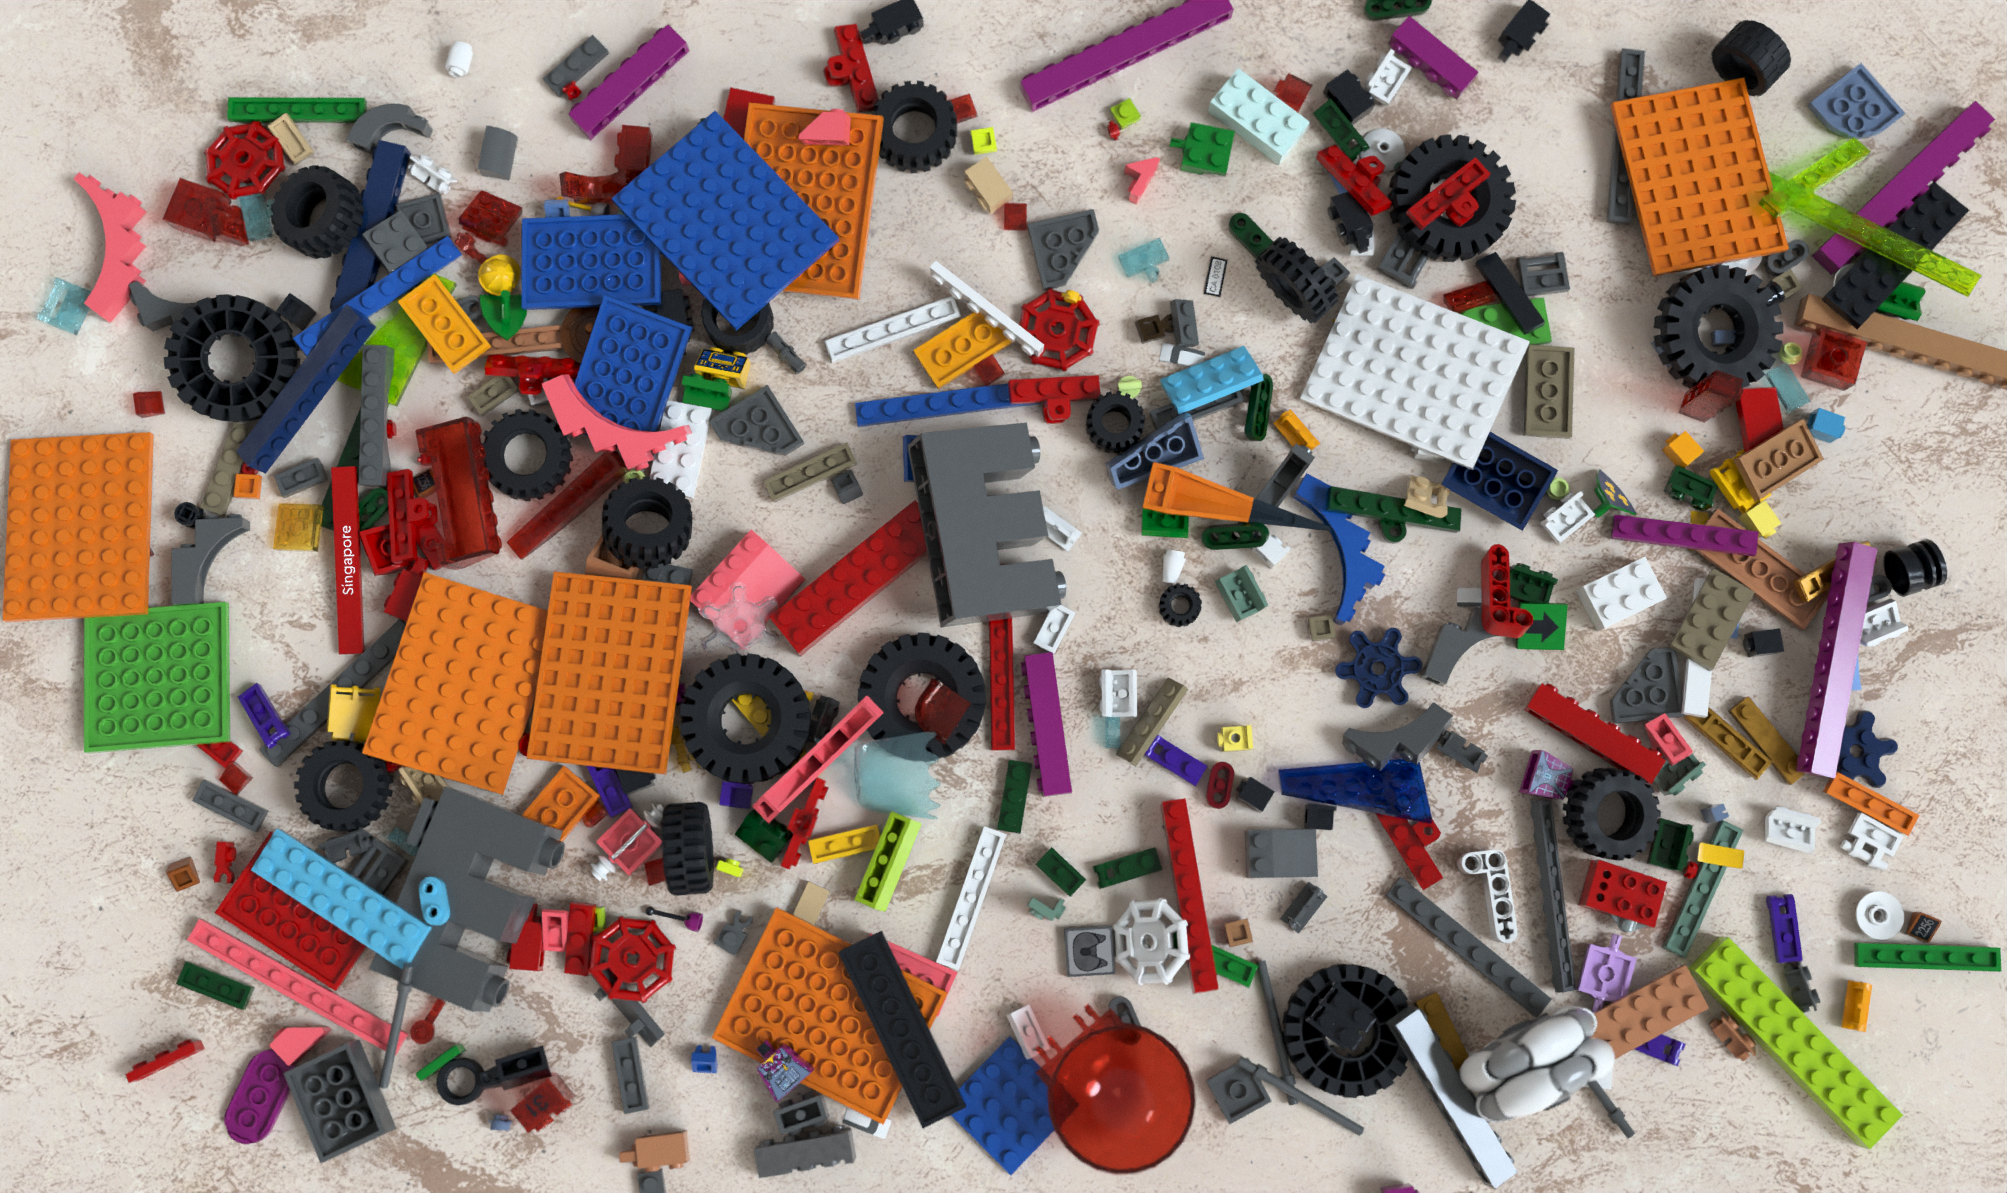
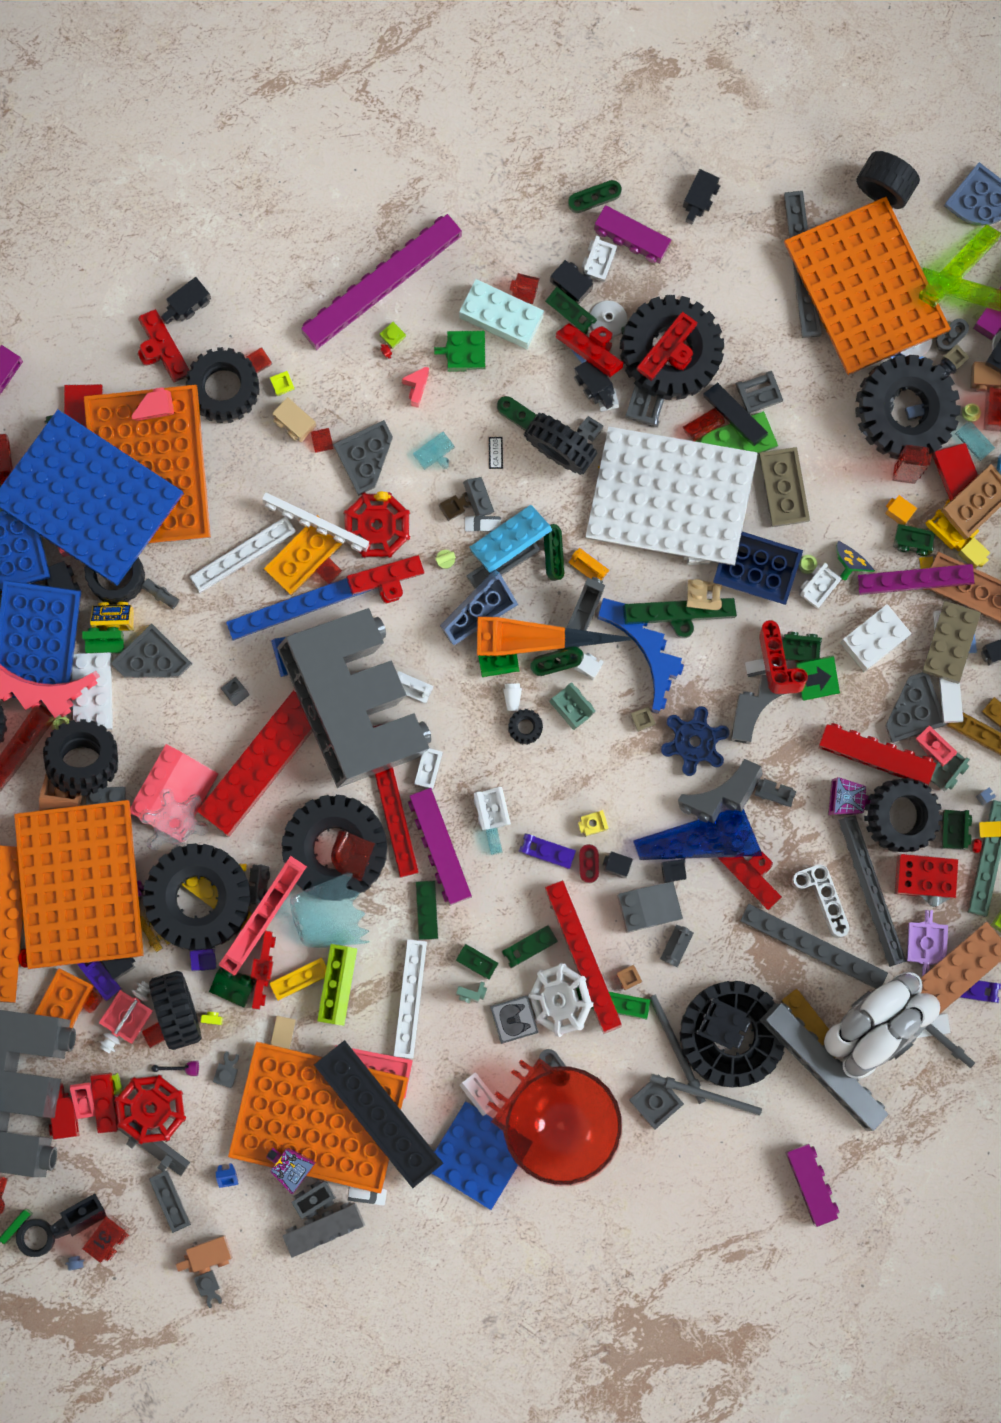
camera: 15 degrees left, 0 degrees up
(810, 472) = (202, 686): dark tan plate -> none
(1117, 403) = (440, 606): black tyre -> none
(1151, 721) = (523, 825): dark tan plate -> none

